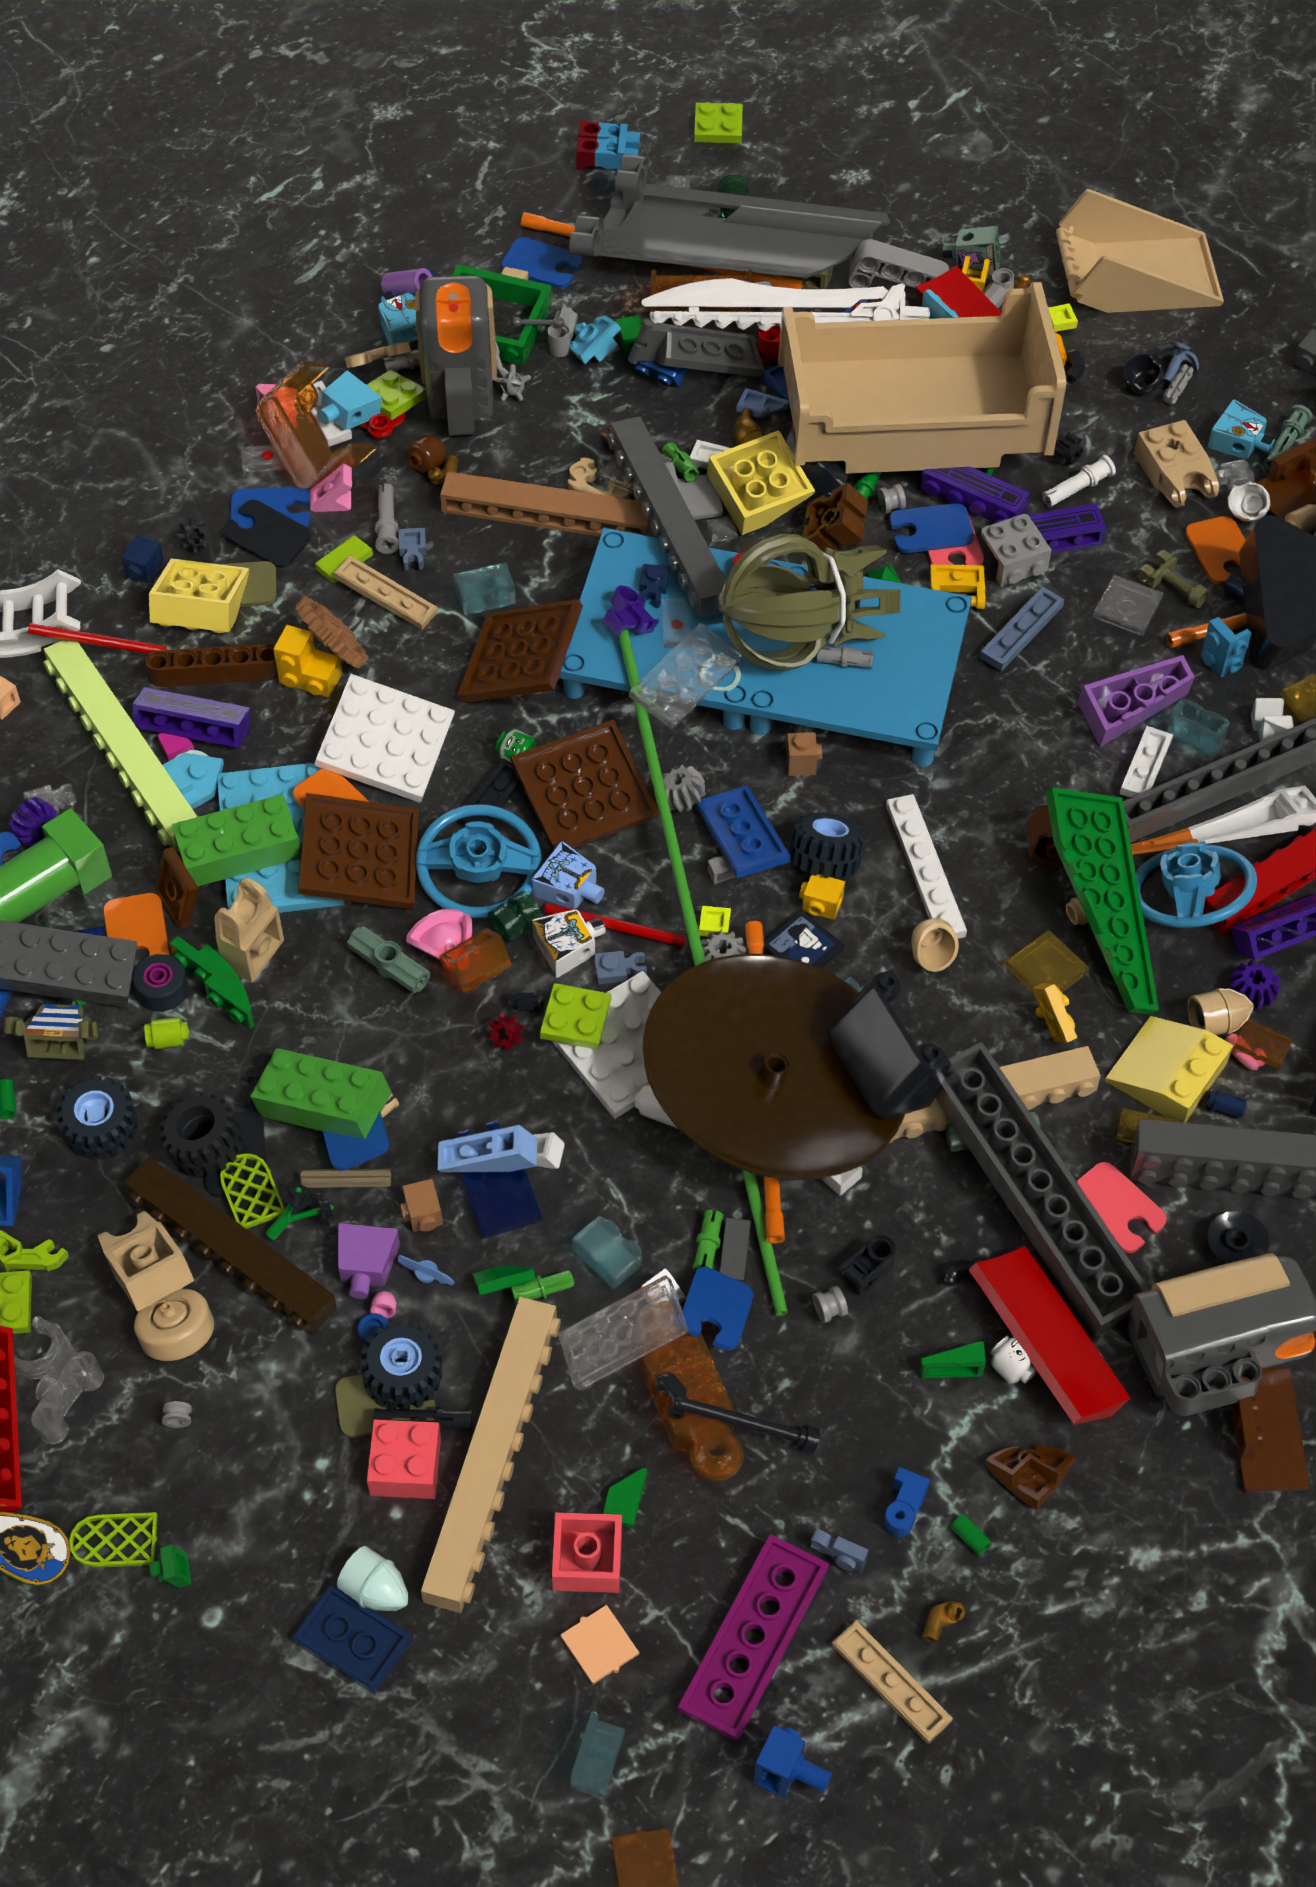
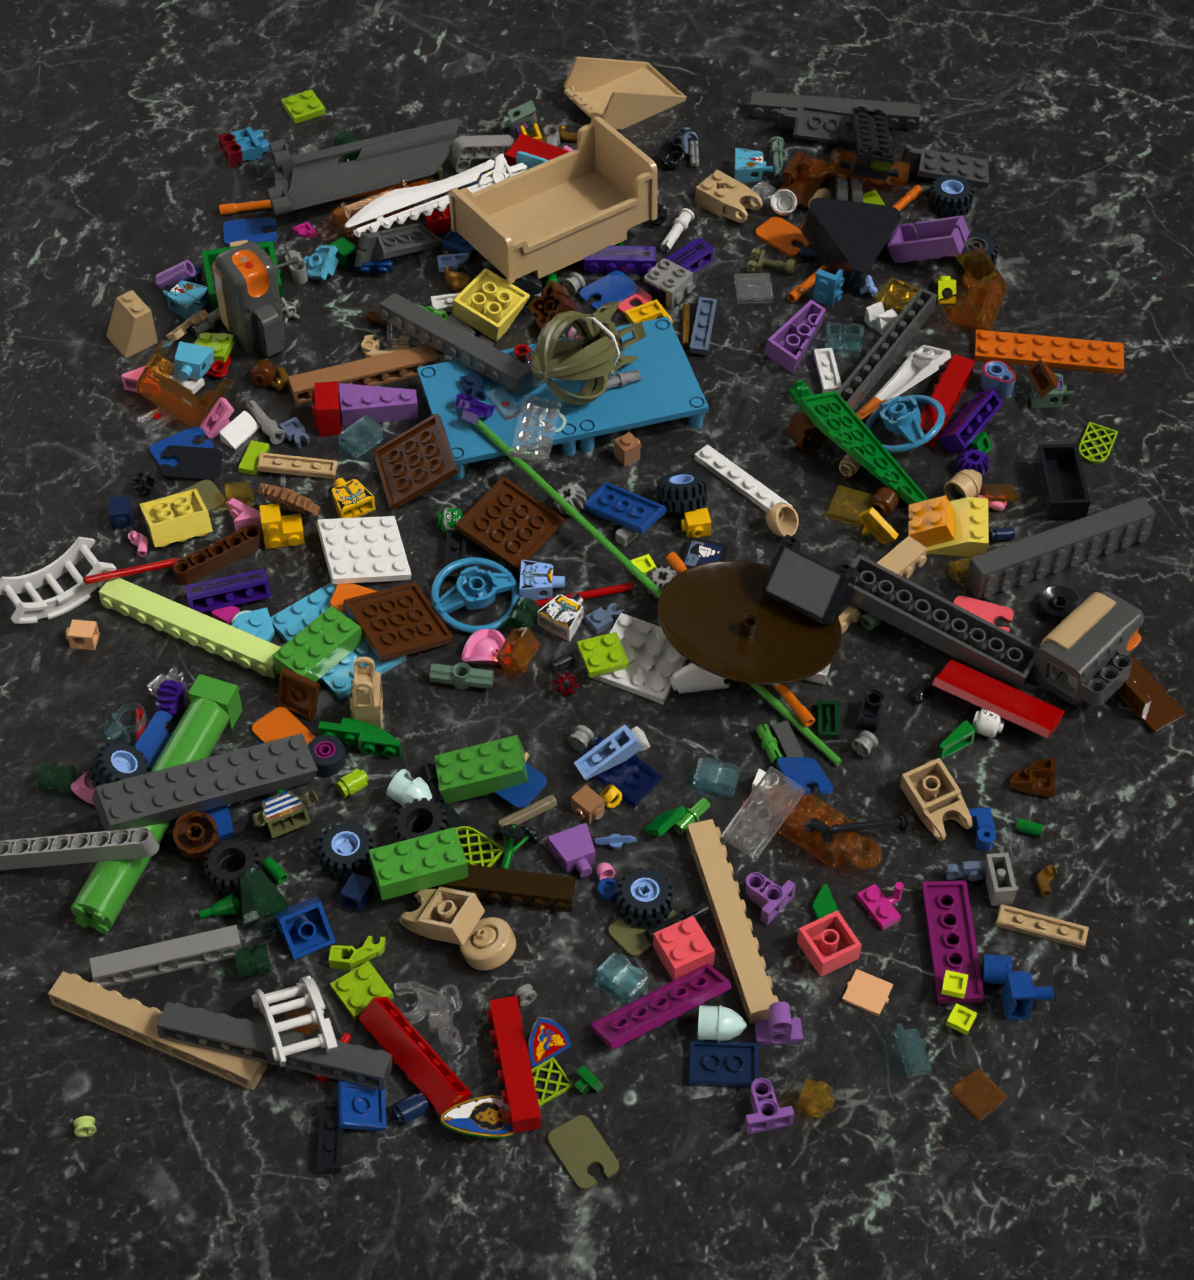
camera: 30 degrees left, 5 degrees down
(76, 1175) = (357, 892): none -> dark blue brick
(97, 1498) = (515, 1065): none -> red brick
(107, 1645) = (579, 1146): none -> olive piece
(141, 608) = (140, 541): none -> bright pink arm
(153, 1488) = (546, 1041): none -> shield
(154, 1178) = (418, 863): none -> bright green brick
(221, 1078) = (406, 789): none -> light aqua helmet
(275, 624) = (243, 514): none -> bright pink slope
(284, 597) = (240, 492): none -> clear yellow brick
(306, 1456) = (622, 977): none -> clear light blue brick
(310, 326) = (131, 325): none -> tan slope
(337, 1528) = (660, 1006): none -> magenta plate
(349, 515) = (239, 430): none -> white slope
(356, 1719) = (766, 1103): none -> medium lavender tile
(416, 665) = (352, 499): none -> yellow torso
(426, 1751) = (816, 1098): none -> clear yellow brick
(450, 1629) = (778, 1027): none -> medium lavender tile
(457, 1205) = (609, 794): none -> yellow tile
(465, 533) = (326, 408): none -> red brick
(475, 1113) = (580, 738): none -> light grey wheel
(531, 553) = (377, 402): none -> medium lavender wedge
(558, 1438) = (765, 890): none -> medium lavender tile
(607, 287) = (304, 230): none -> dark pink tile
(690, 1750) = (961, 1019): none -> neon yellow plate
(696, 1536) = (879, 906): none -> dark pink plate
(707, 1698) = (954, 984): none -> neon yellow plate
(781, 1706) = (996, 968): none -> blue piece
(795, 1267) = (828, 733): none -> dark green tile
(864, 1438) = (935, 797): none -> tan brick
(872, 1586) = (1000, 879): none -> light grey brick
(1002, 617) = (686, 325): none -> pearl gold bar
(1089, 777) = (799, 390): none -> green tile
(1092, 982) = (884, 501): none -> reddish brown head
(1132, 1041) = (932, 521): none -> light orange piece
(1285, 962) = (982, 442): none -> green tile
(1288, 670) = (869, 287): none -> light blue plant

